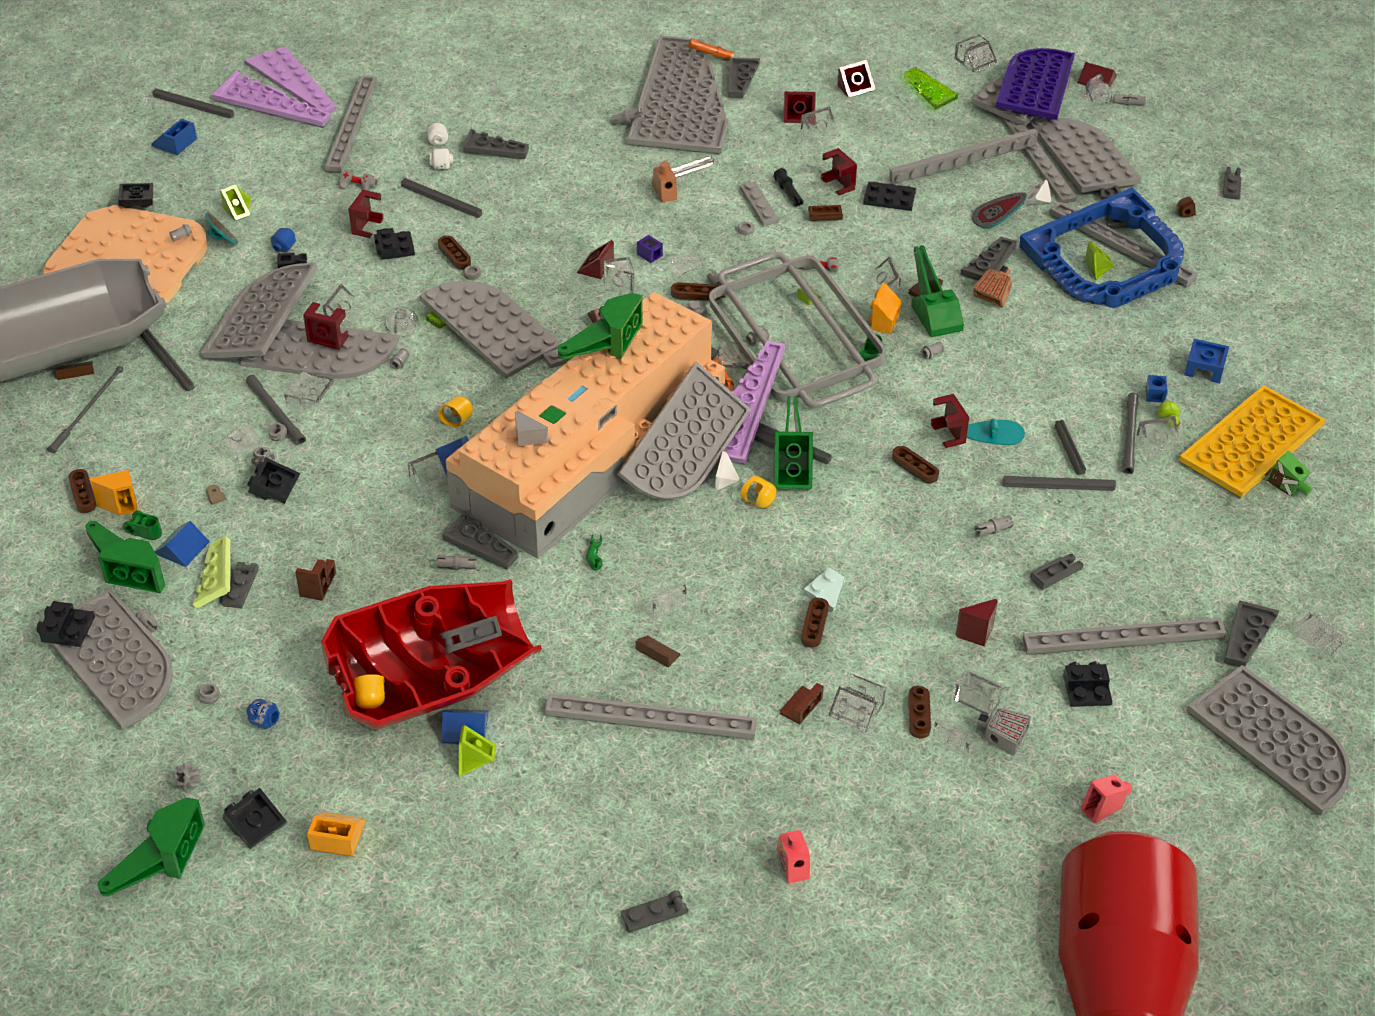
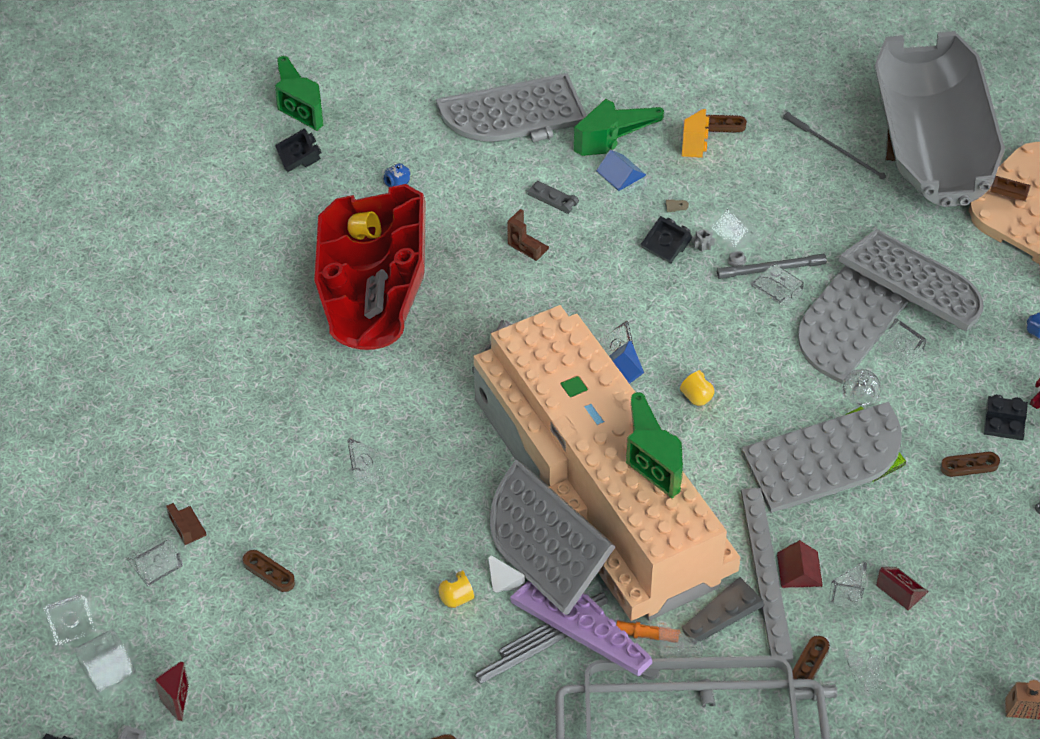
camera: 115 degrees right, 5 degrees up
(64, 624) = (556, 82): black plate -> none
(143, 525) = (654, 151): green piece -> none
(167, 360) = (880, 208): dark grey axle -> none
(186, 776) = (361, 123): light grey gear -> none
(207, 689) = (441, 154): light grey plate -> none
(216, 573) = (574, 182): yellowish green wing -> none
(286, 259) = (1005, 326): black plate -> none
(324, 329) = (854, 306): dark red panel -> none
(335, 833) = (254, 189): light orange slope -> none
(398, 361) = (804, 371): light grey pin -> none
(455, 718) = (307, 296): blue slope -> none
(472, 272) = (930, 472): light grey tile -> none
(474, 751) = (280, 287): lime slope -> none
(529, 430) = (548, 348): light grey slope -> none
(594, 561) = (451, 435): green arm -> none
(649, 248) = (905, 643): dark purple brick -> none
(651, 716) = (238, 413): light grey plate -> none
(654, 912) = (57, 351): dark grey plate -> none
(657, 651) = (311, 443): reddish brown slope -> none
(790, 849) = (36, 446): coral torso -> none
(793, 454) = (486, 627): green slope -> none
(826, 586) = (306, 600): light aqua wing -> none
(919, 717) = (125, 613): reddish brown plate -> none
(1005, 729) = (51, 660): light grey torso -> none

